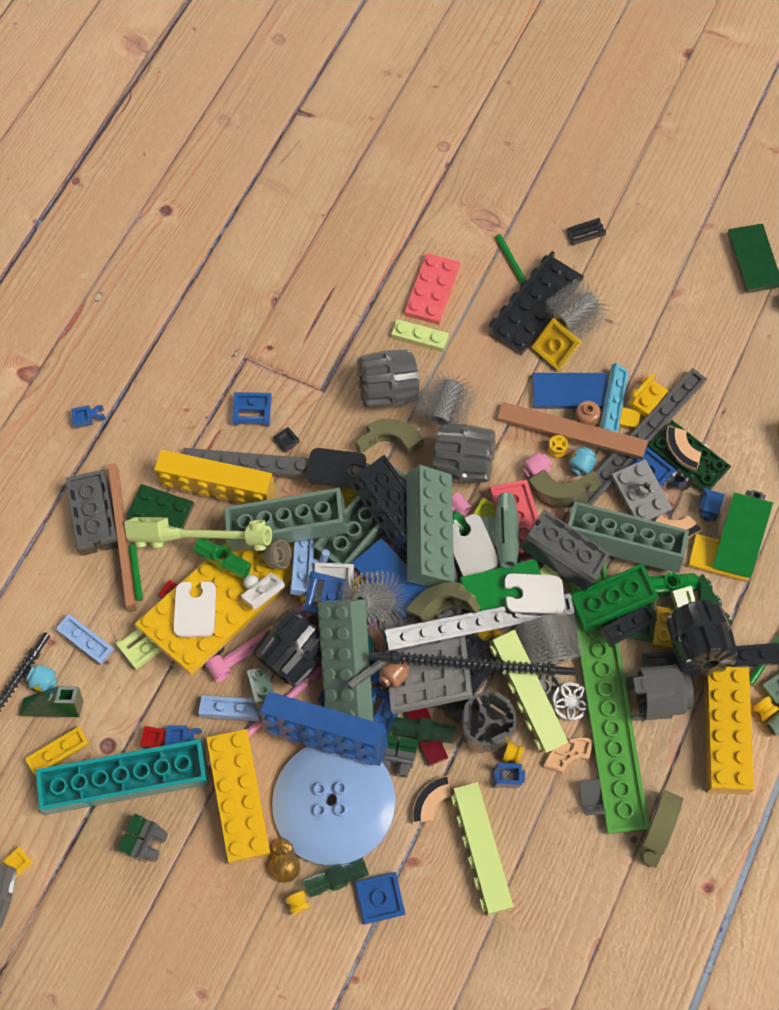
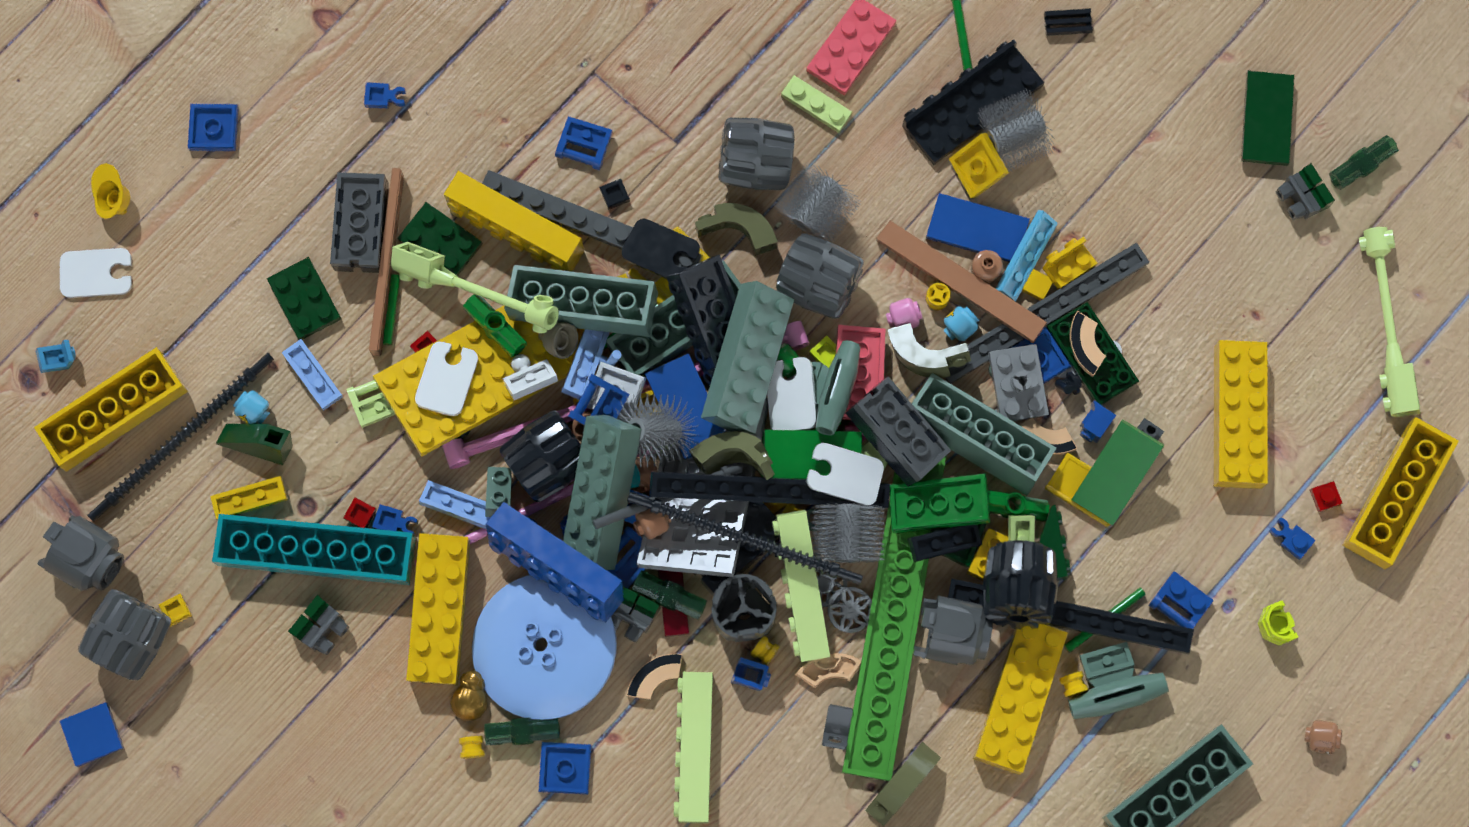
camera: 15 degrees right, 10 degrees up
(63, 583) = (304, 298): none -> dark green plate

